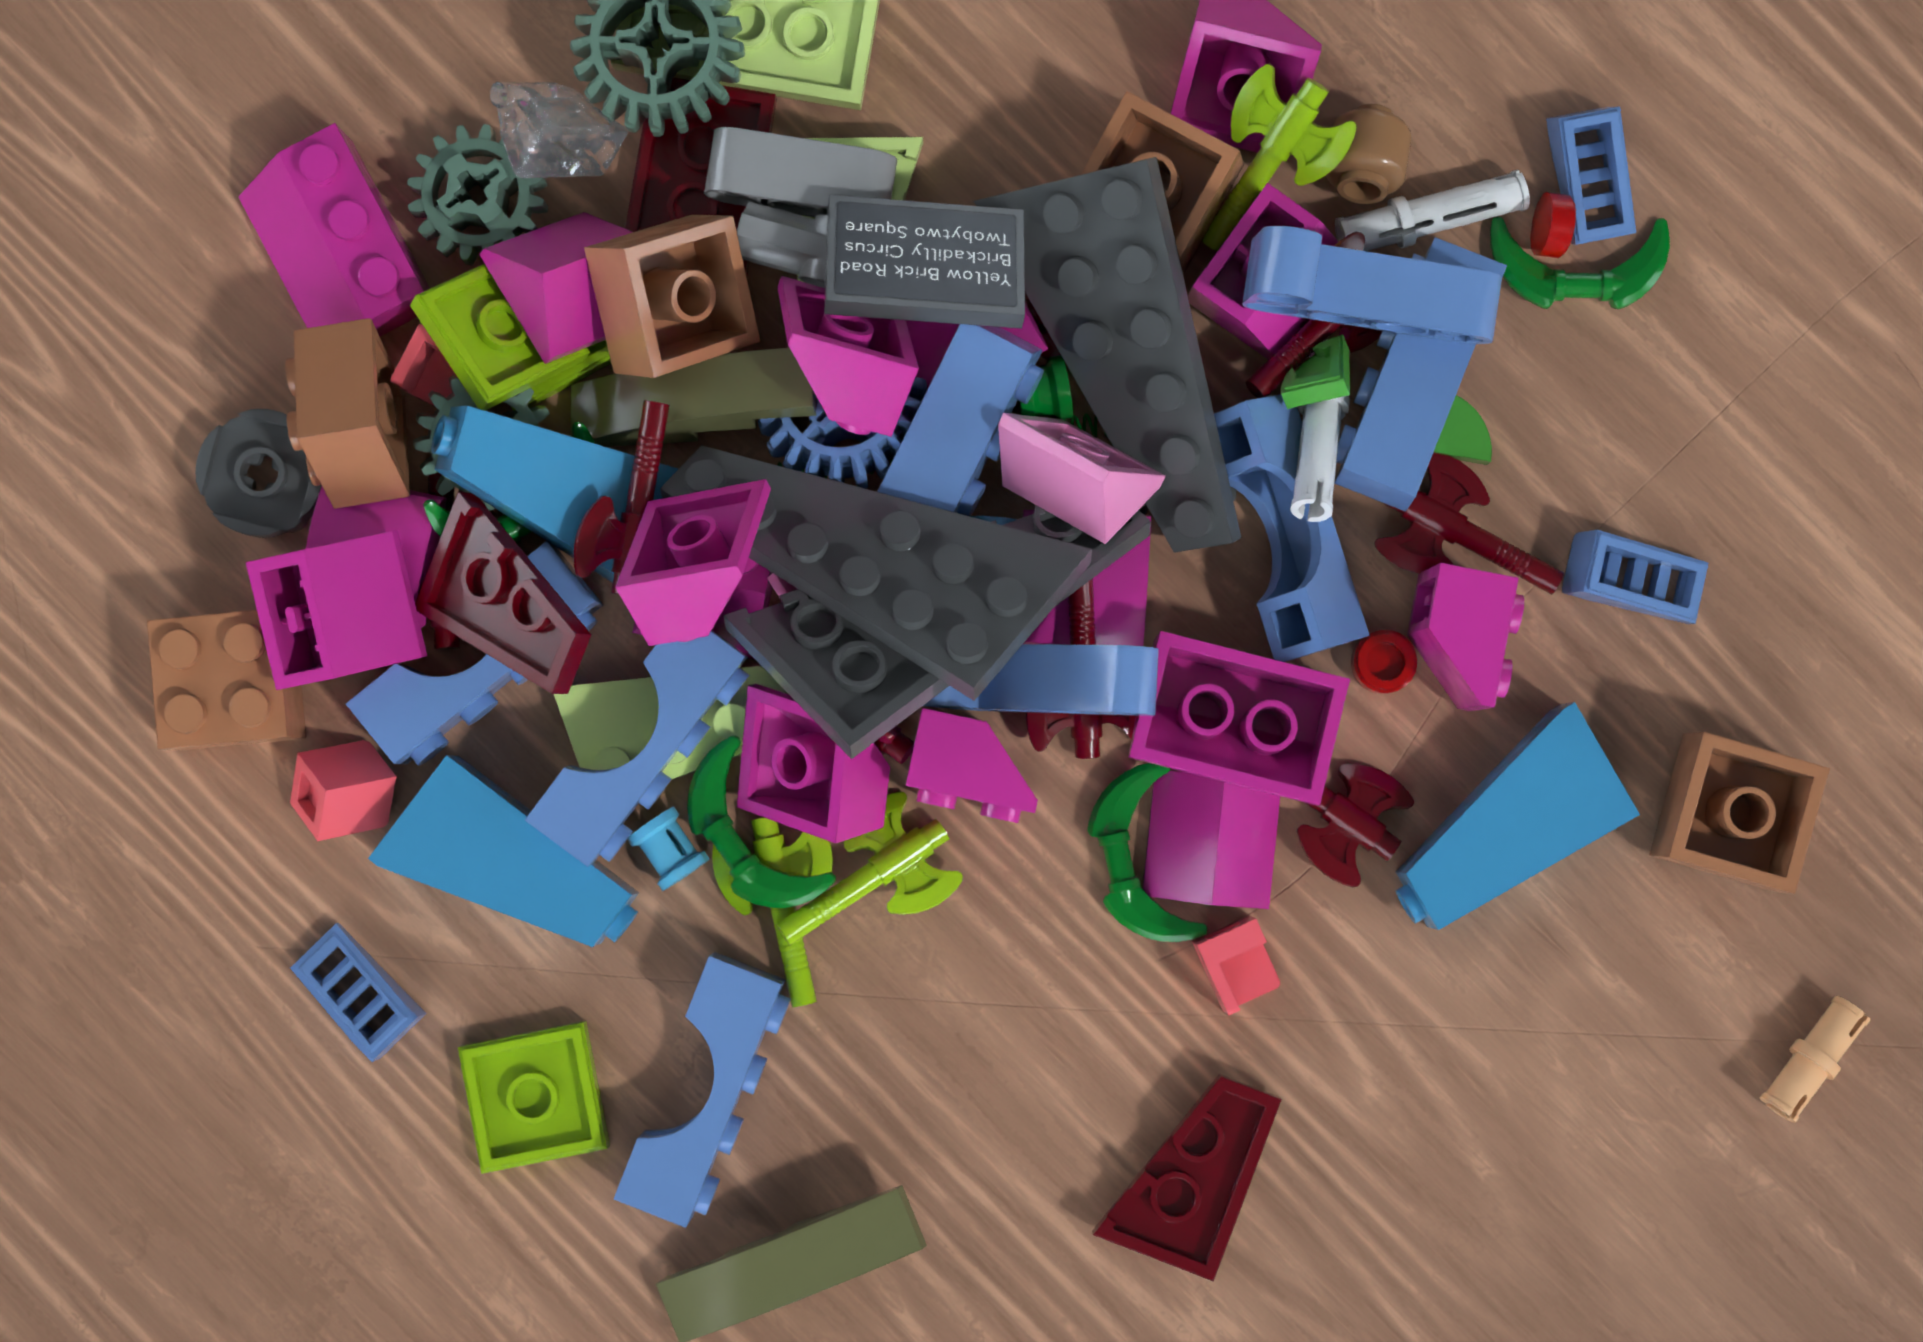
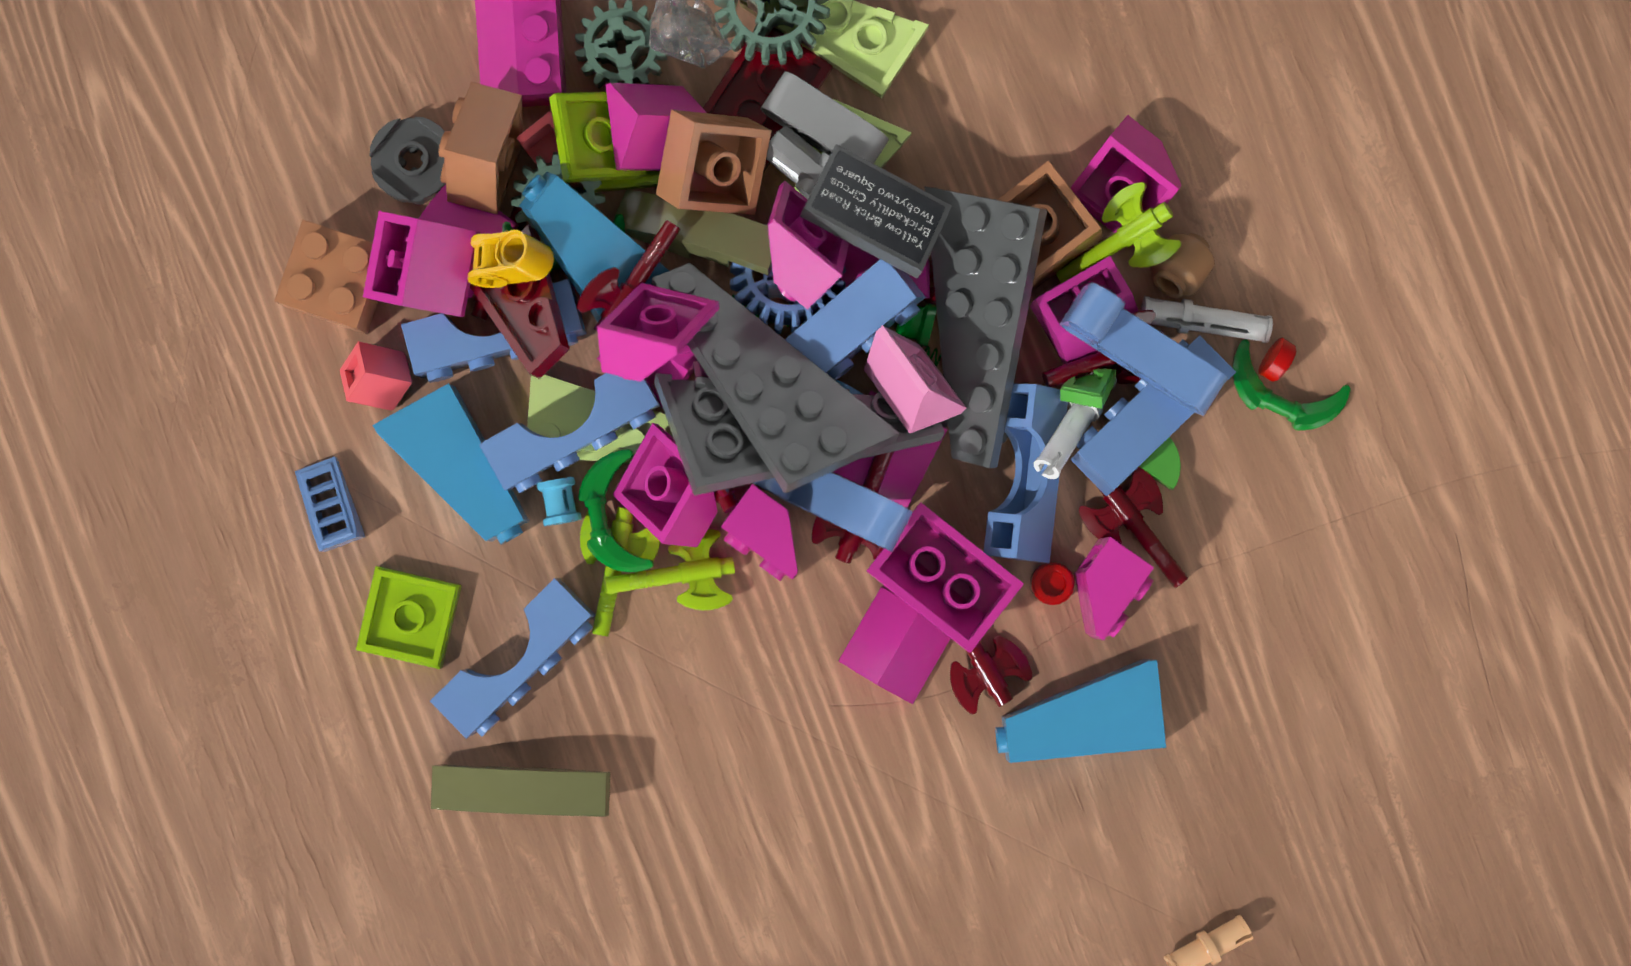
camera: 20 degrees right, 0 degrees up
(453, 549) = (508, 259): none -> yellow piece
(1127, 899) = (827, 659): green piece -> none
(1196, 1181) = (792, 852): dark red wing -> none
(1237, 963) = (877, 729): coral panel -> none
(1595, 568) = (1204, 578): medium blue slope -> none
(1615, 170) = (1331, 343): medium blue slope -> none
(1739, 811) = (1229, 773): nougat brick -> none

